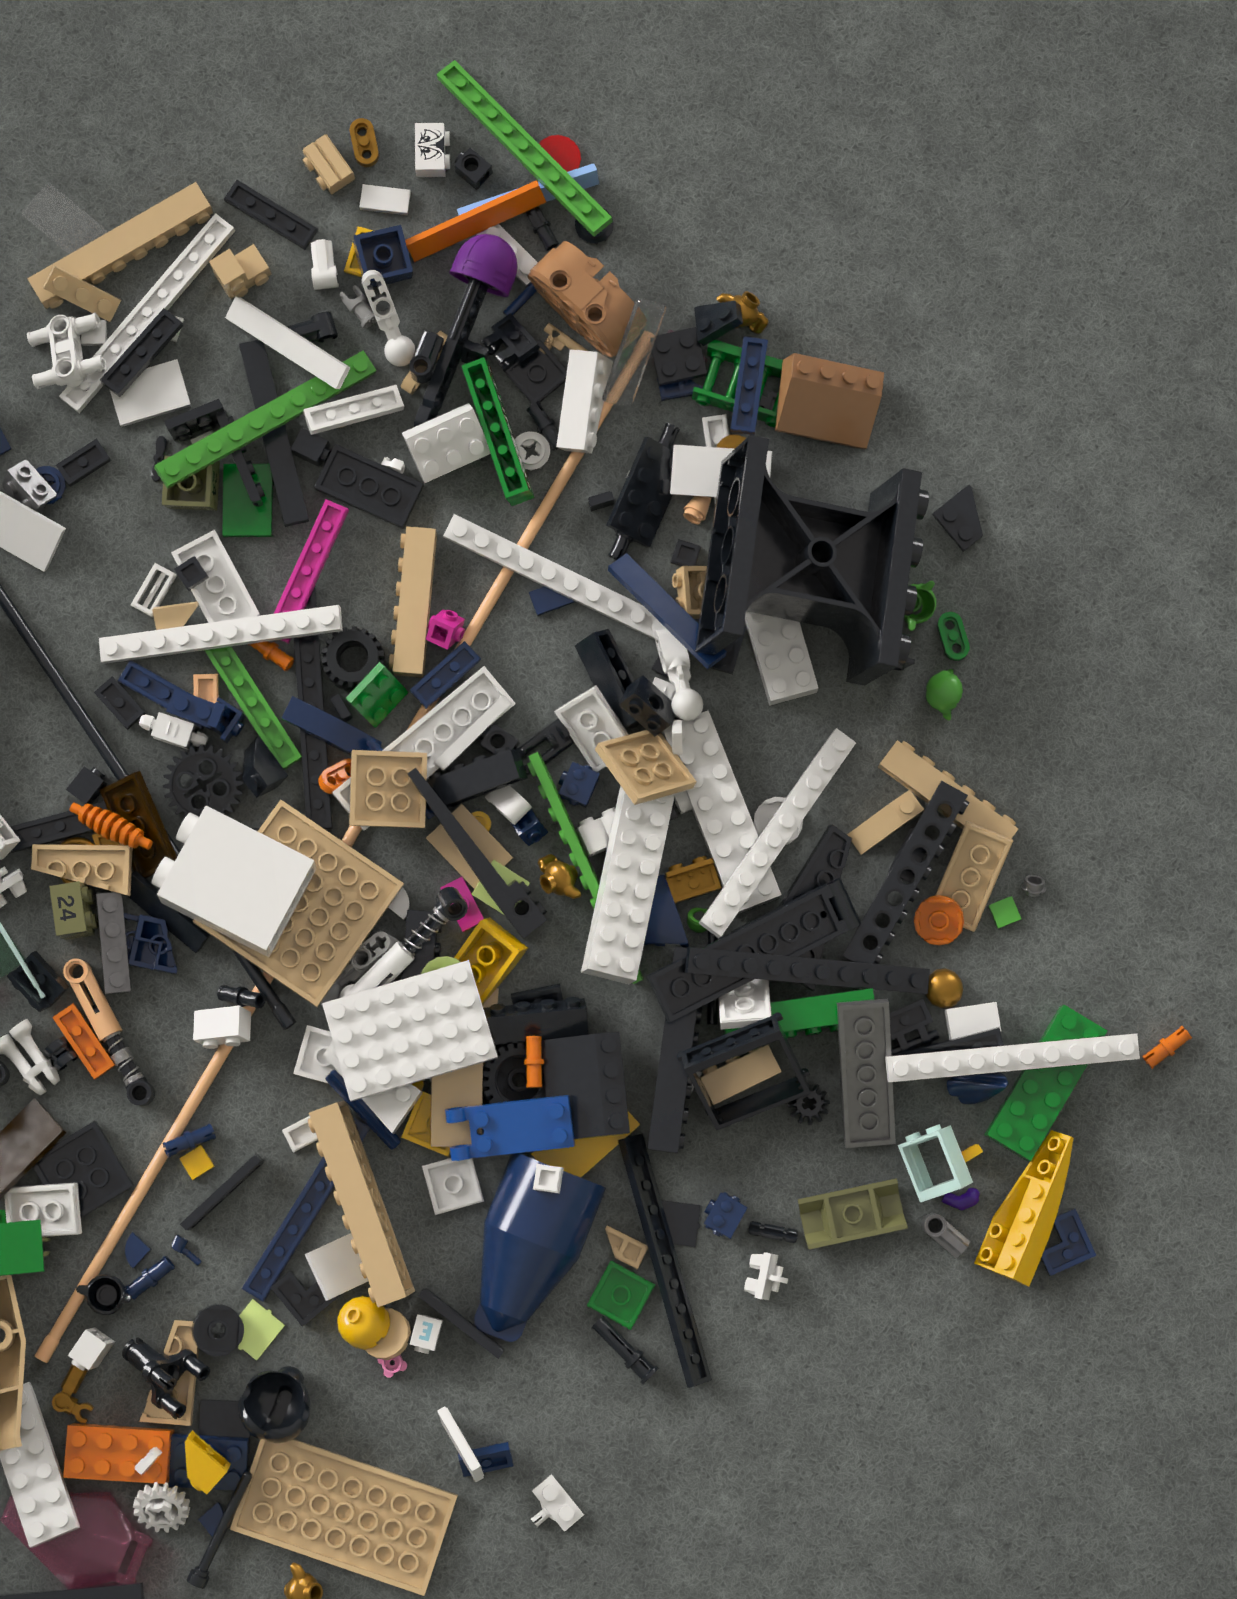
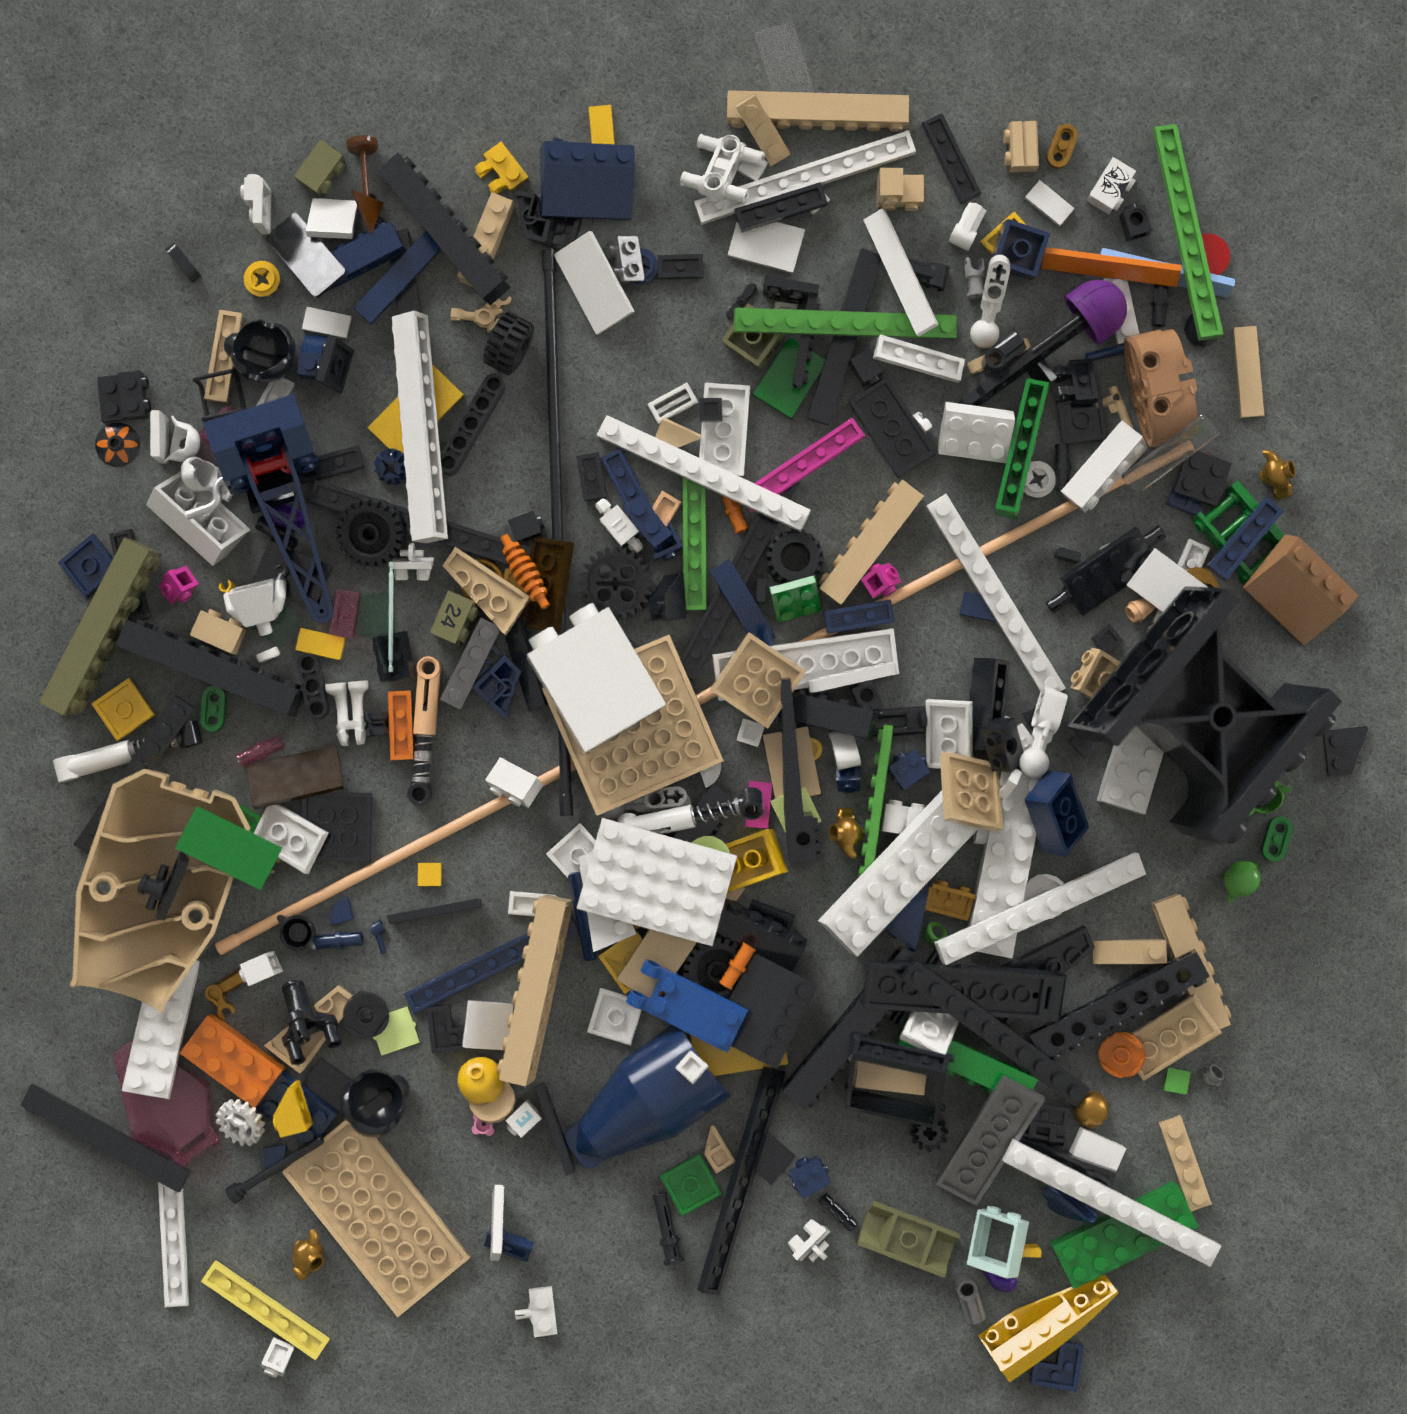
camera: 30 degrees right, 5 degrees up
(146, 1462) = (251, 1083): white tile -> none
(189, 1140) = (433, 854): dark blue pin -> none
(241, 996) = (543, 769): black pin -> none
(335, 775) = (723, 642): orange plate -> none
(413, 843) = (750, 732): none -> white plate
(660, 238) = (1248, 372): none -> tan tile
(661, 606) = (1062, 670): dark blue tile -> none
(716, 320) = (1252, 469): black wing -> none
(736, 736) = (1056, 813): none -> dark blue brick
(1060, 982) = (1184, 1163): none -> tan plate
(1167, 1047) = (1236, 1266): orange pin -> none

